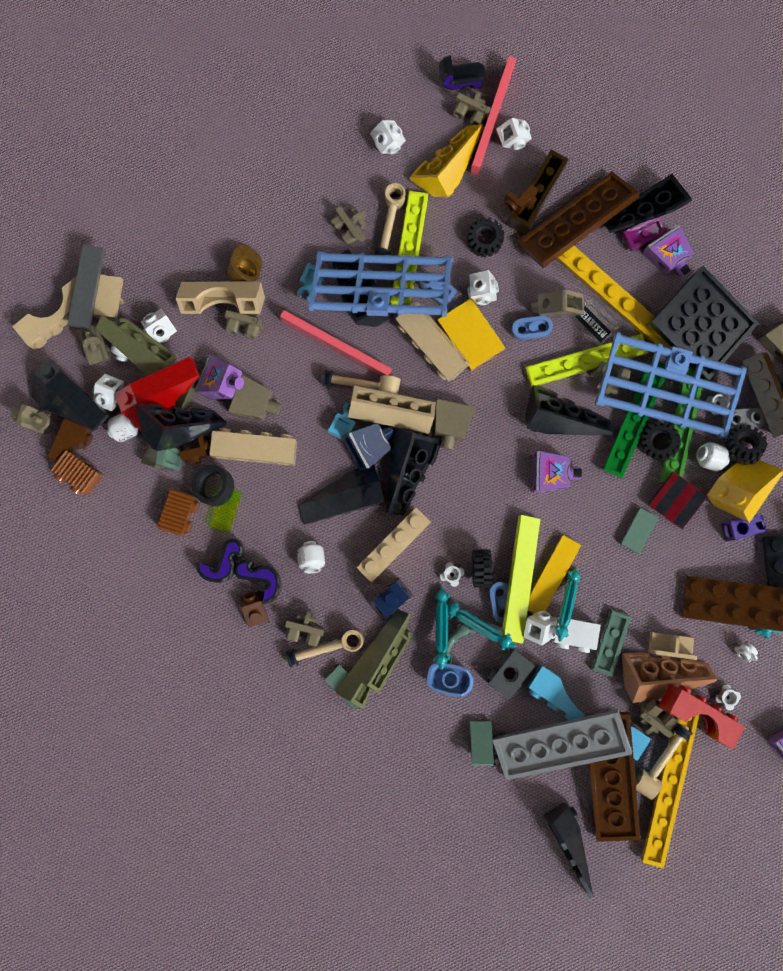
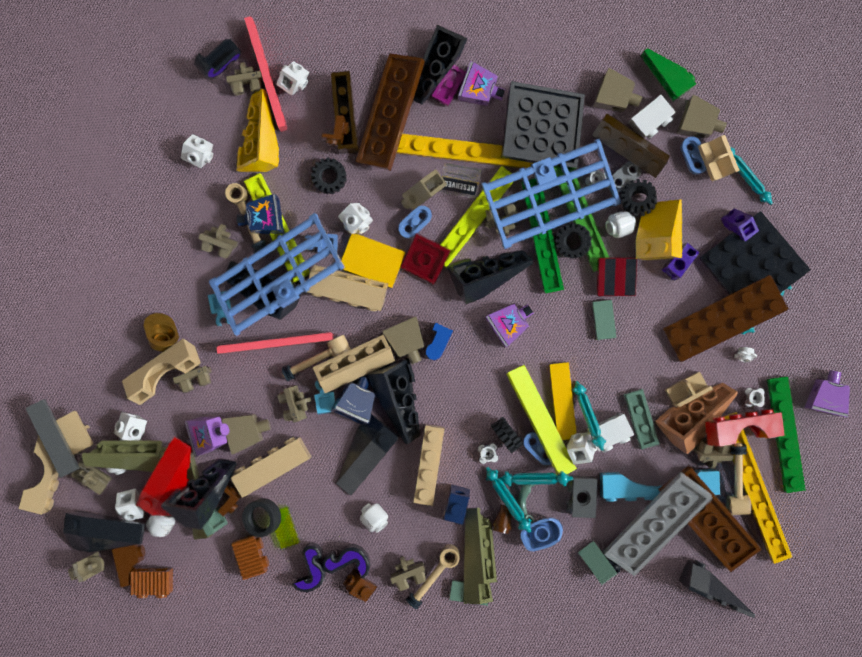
camera: 30 degrees left, 5 degrees up
(316, 408) = (296, 404): none -> dark tan hips
(405, 228) = (263, 216): none -> dark blue torso
(421, 645) = (503, 520): none -> reddish brown cone
(477, 447) = (436, 349): none -> blue leg
(518, 365) = (425, 258): none -> dark red tile
(730, 760) = (788, 444): none -> green plate

